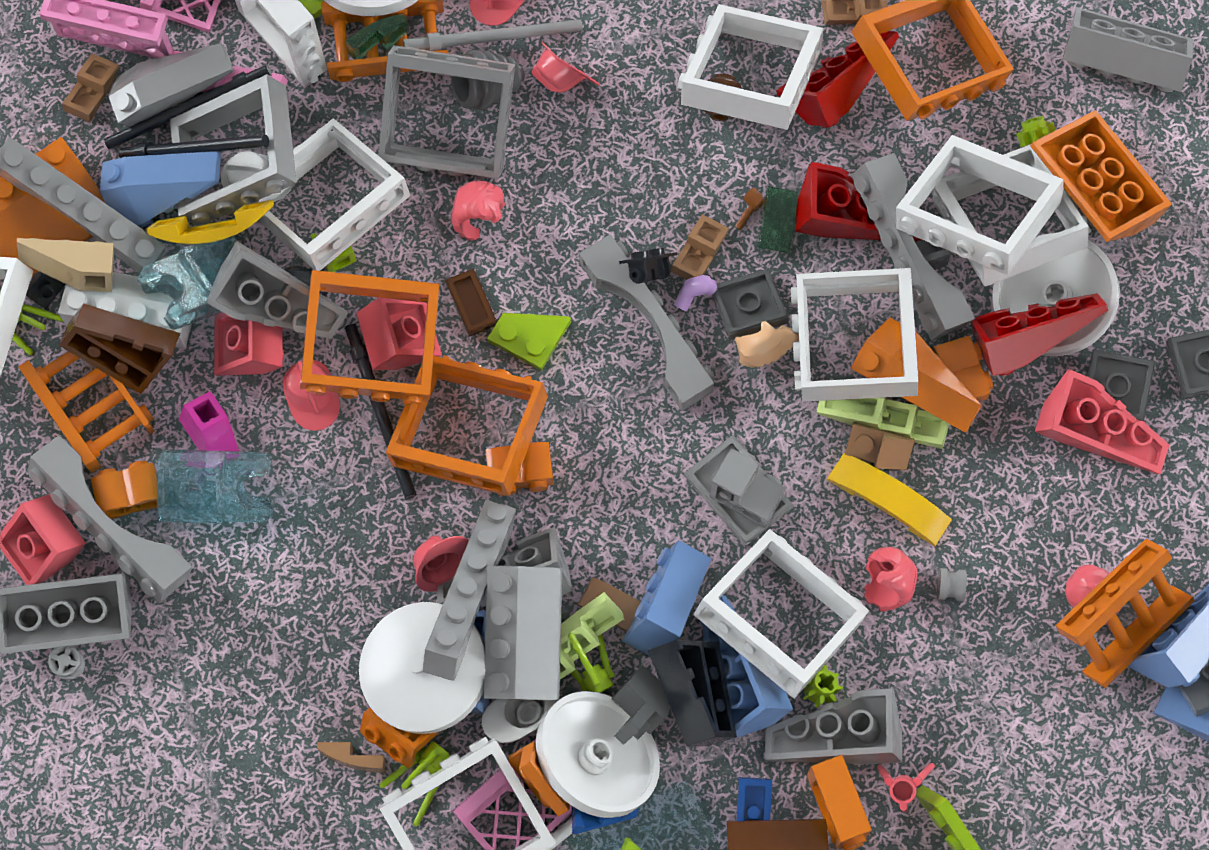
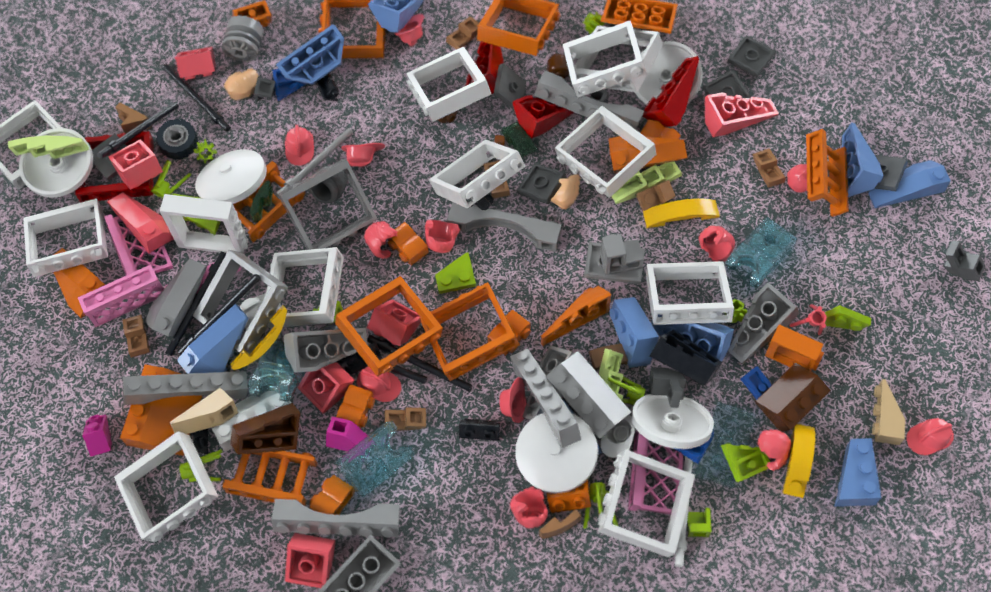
camera: 40 degrees left, 10 degrees down
(253, 401) = (356, 405): none -> orange brick
(299, 467) = (407, 419): none -> medium nougat slope
(326, 351) = (356, 363): none -> black hinge
(333, 705) = (529, 507): none -> coral hair
(351, 404) = (409, 374): none -> black bar
(361, 547) = (473, 430): none -> black hinge
(471, 302) = (418, 283): reddish brown tile -> none
(506, 244) = (408, 244): none -> orange brick
(528, 768) = (658, 452): orange bracket -> none
(554, 267) = (440, 235): none -> coral hair
(635, 518) = (587, 307): none -> orange wedge
(669, 198) = (445, 180): none -> white window
(694, 287) = (510, 196): lavender arm -> none
(833, 134) = (509, 85): none -> dark grey plate
(923, 154) = (558, 65): none -> reddish brown head
(926, 644) = (763, 250): none -> clear light blue brick
(951, 584) = (743, 224): light grey wheel -> none
(1067, 537) = (768, 168): none -> medium nougat slope

